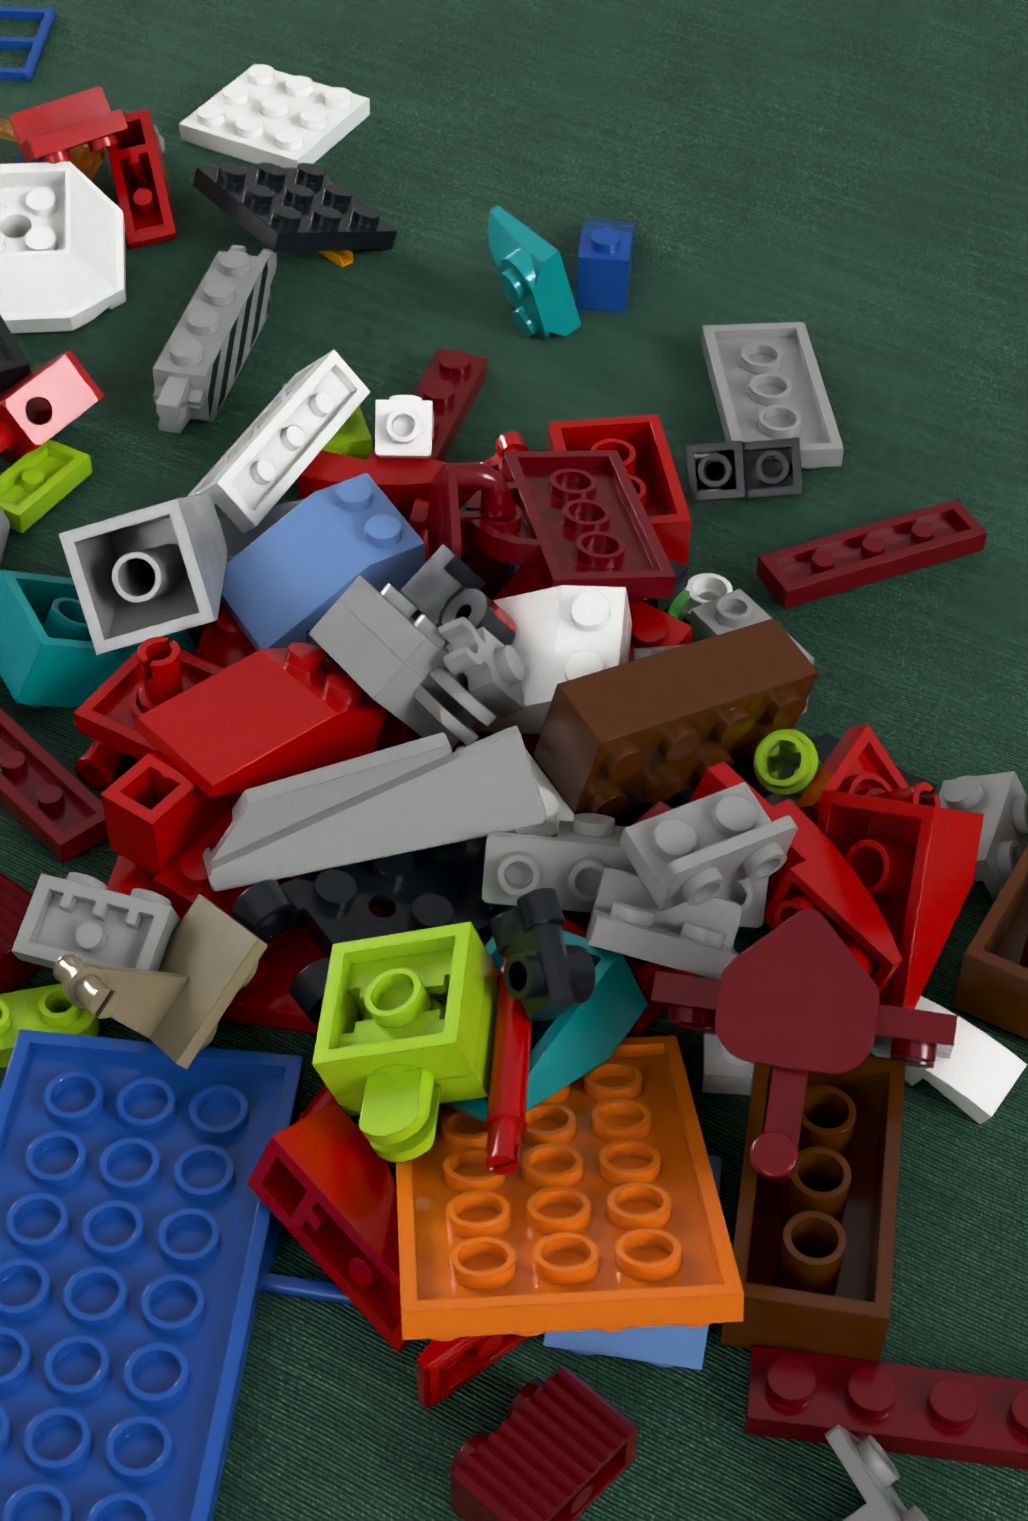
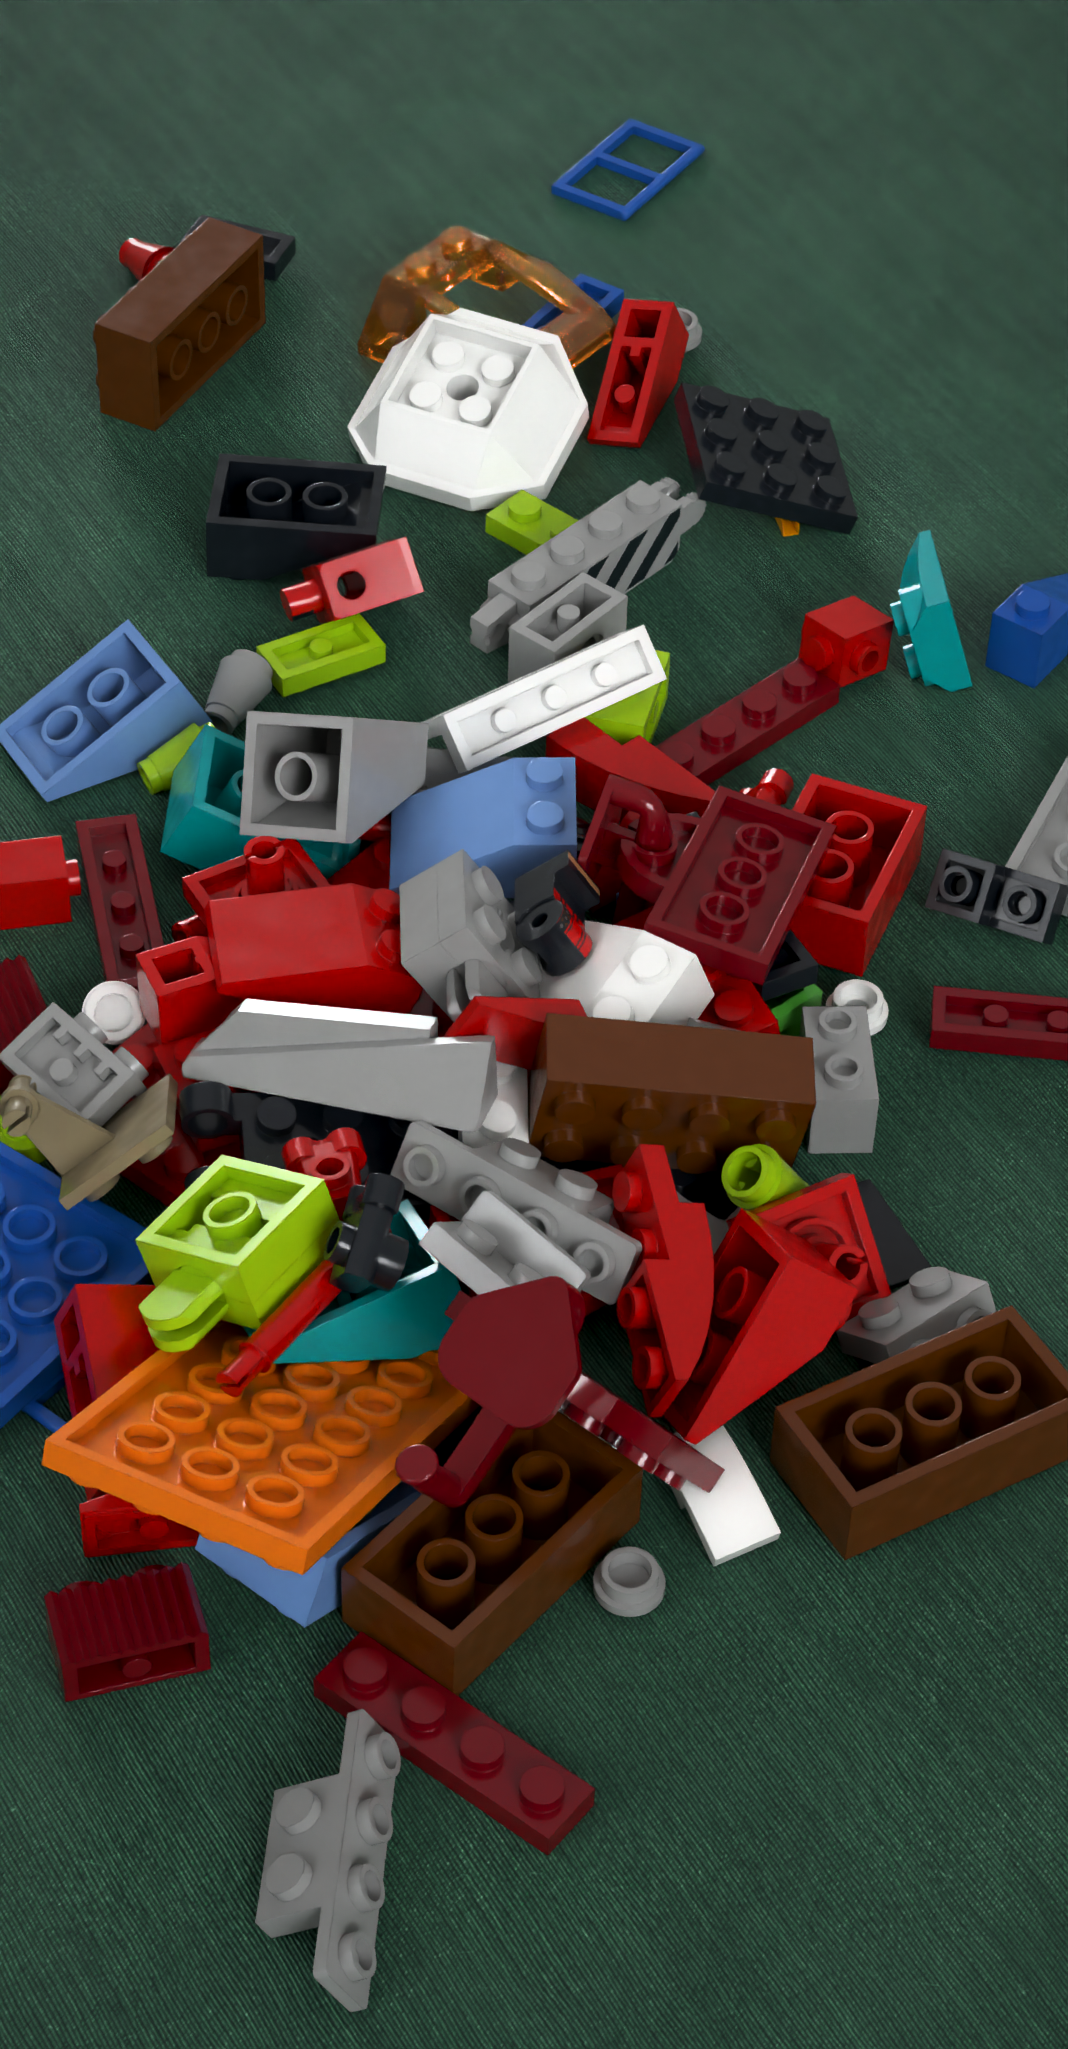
camera: 30 degrees right, 0 degrees up
(65, 124) = (576, 294): red bracket -> none
(78, 853) = (115, 1010): none -> white tile
(136, 323) = (526, 522): none -> lime plate
(244, 386) = (564, 624): none -> light grey brick
(275, 118) = (836, 348): white plate -> none
(404, 427) = (673, 726): white bracket -> none
(428, 903) = (334, 1159): none -> red plate
(469, 319) = (846, 640): none -> red brick
(490, 666) = (523, 965): light grey plate -> none
(519, 704) = (513, 1022): none -> red slope
(706, 846) = (580, 1207): light grey bracket -> none
(936, 1174) = (629, 1582): none -> light grey plate

